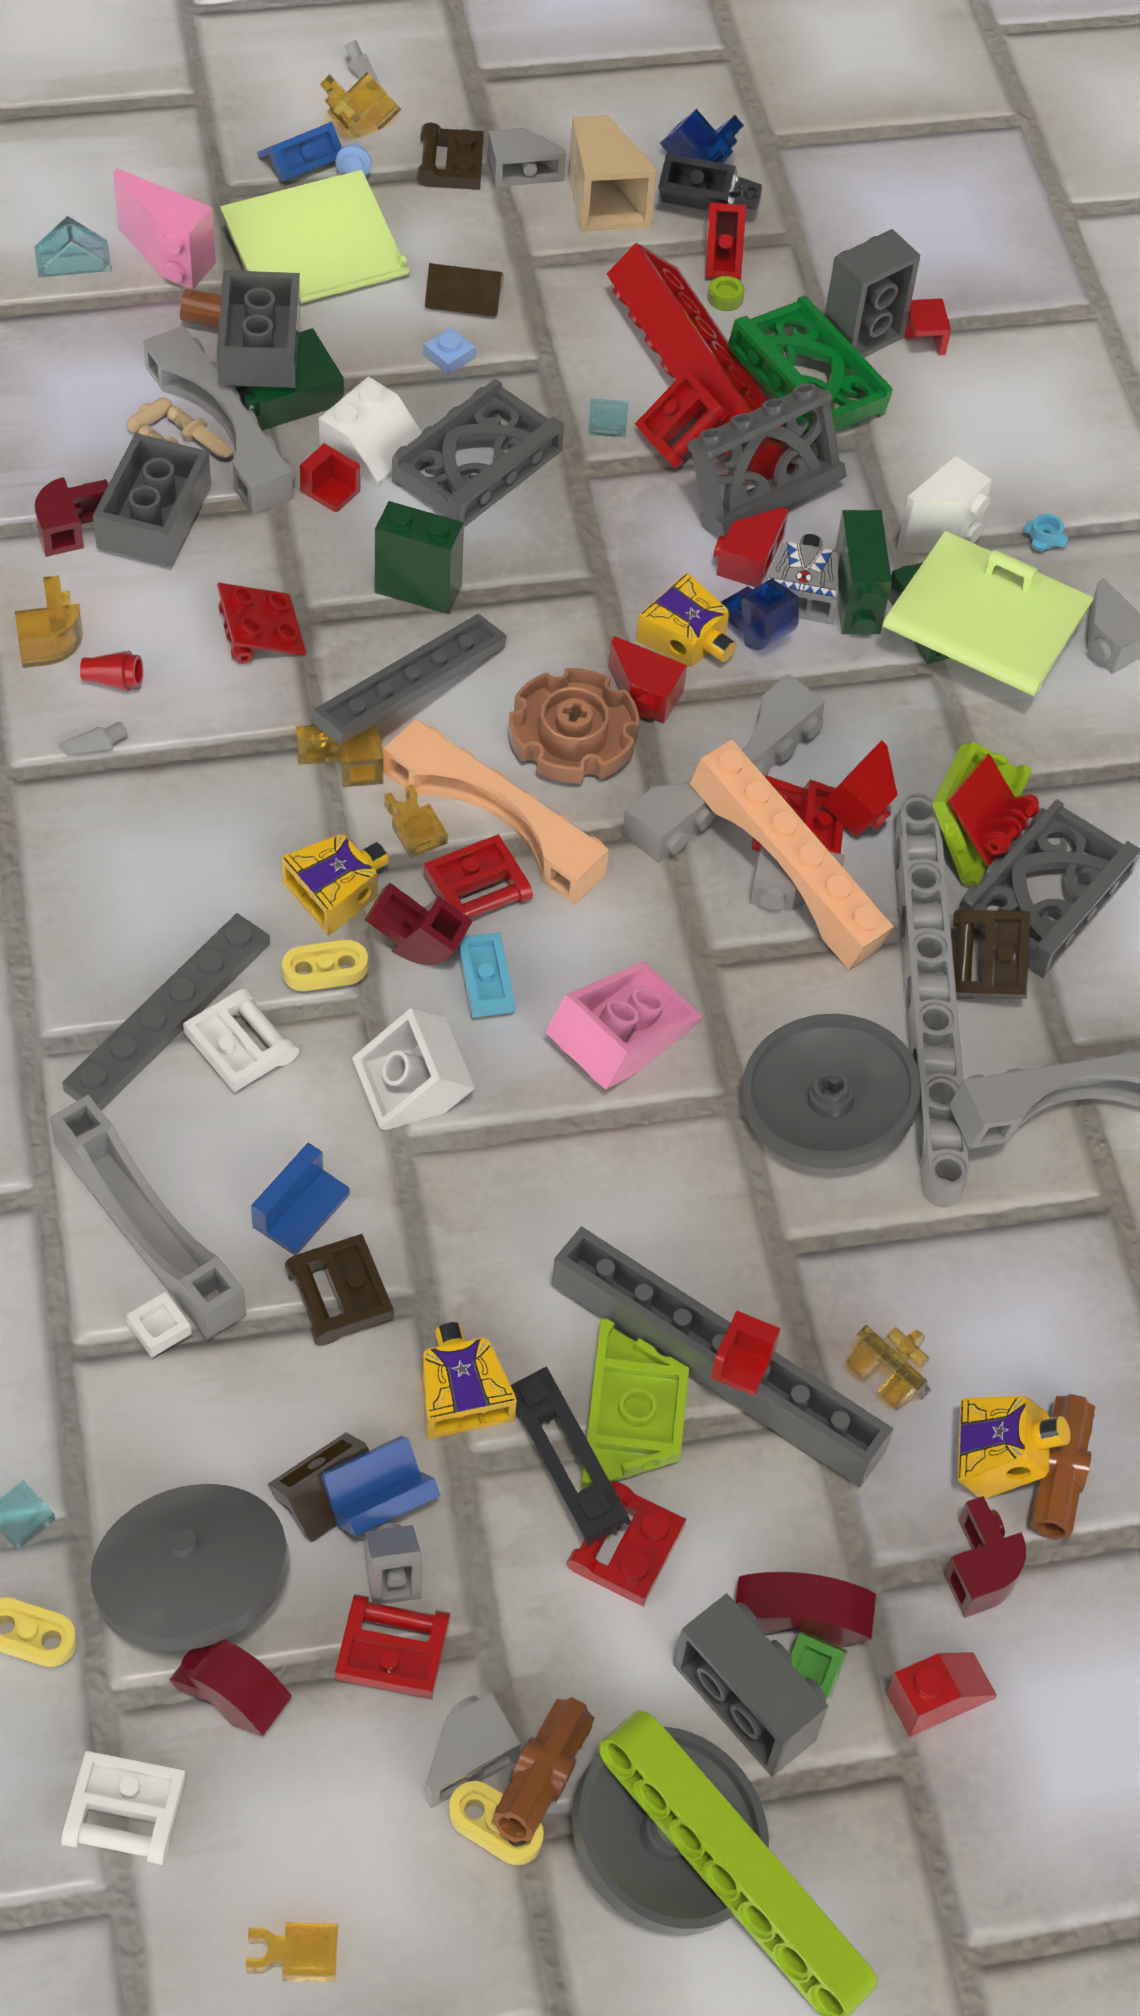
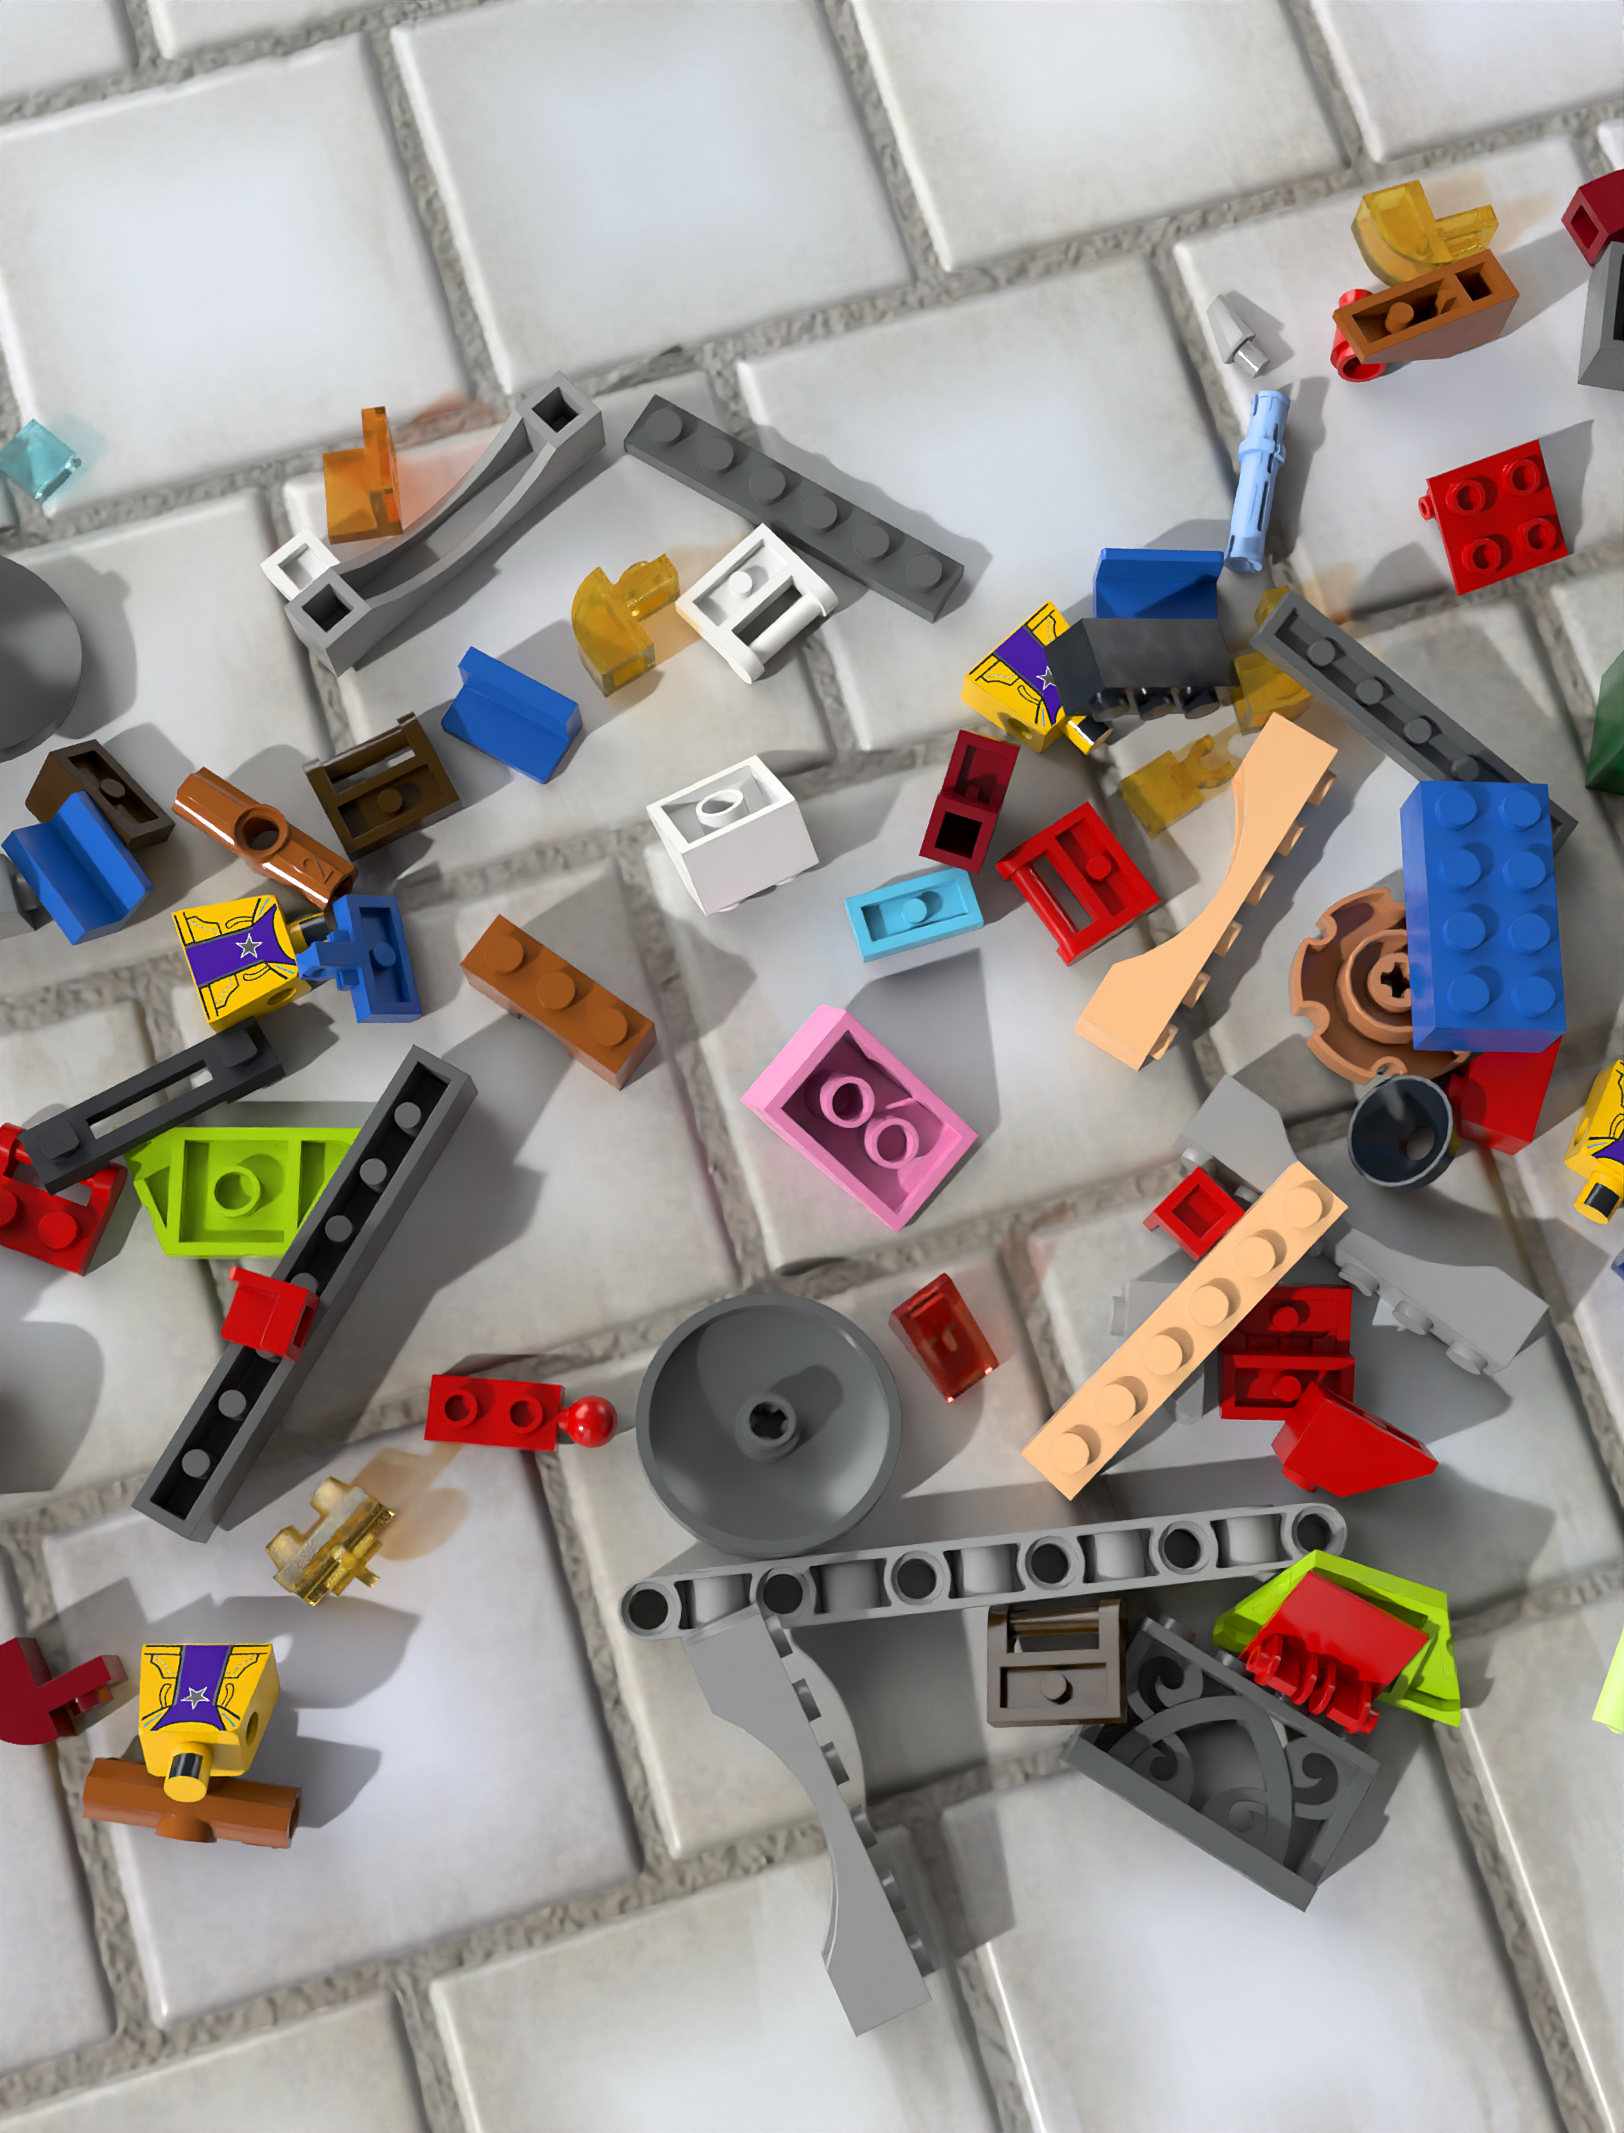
camera: 85 degrees right, 20 degrees up
(98, 1269) = (364, 485): none -> clear orange panel
(116, 617) = (1431, 313): none -> dark orange slope
(216, 744) = (1260, 459): none -> light blue pin
(242, 1130) = (609, 618): none -> clear yellow brick
(279, 810) = (1156, 584): none -> blue panel
(324, 965) = (895, 697): light yellow plate -> none
(346, 808) = (1141, 668): none -> black brick
(356, 1384) = (238, 819): none -> dark orange piece
(475, 1304) = (368, 959): none -> blue hinge
(541, 1165) = (563, 1000): none -> dark orange arch
(545, 656) = (1481, 917): none -> blue brick
(651, 734) = (1386, 1122): none -> black piece
(709, 844) = (1195, 1213): none -> red panel
(773, 996) = (943, 1338): none -> clear red slope
(809, 1250) = (514, 1415): none -> red plate

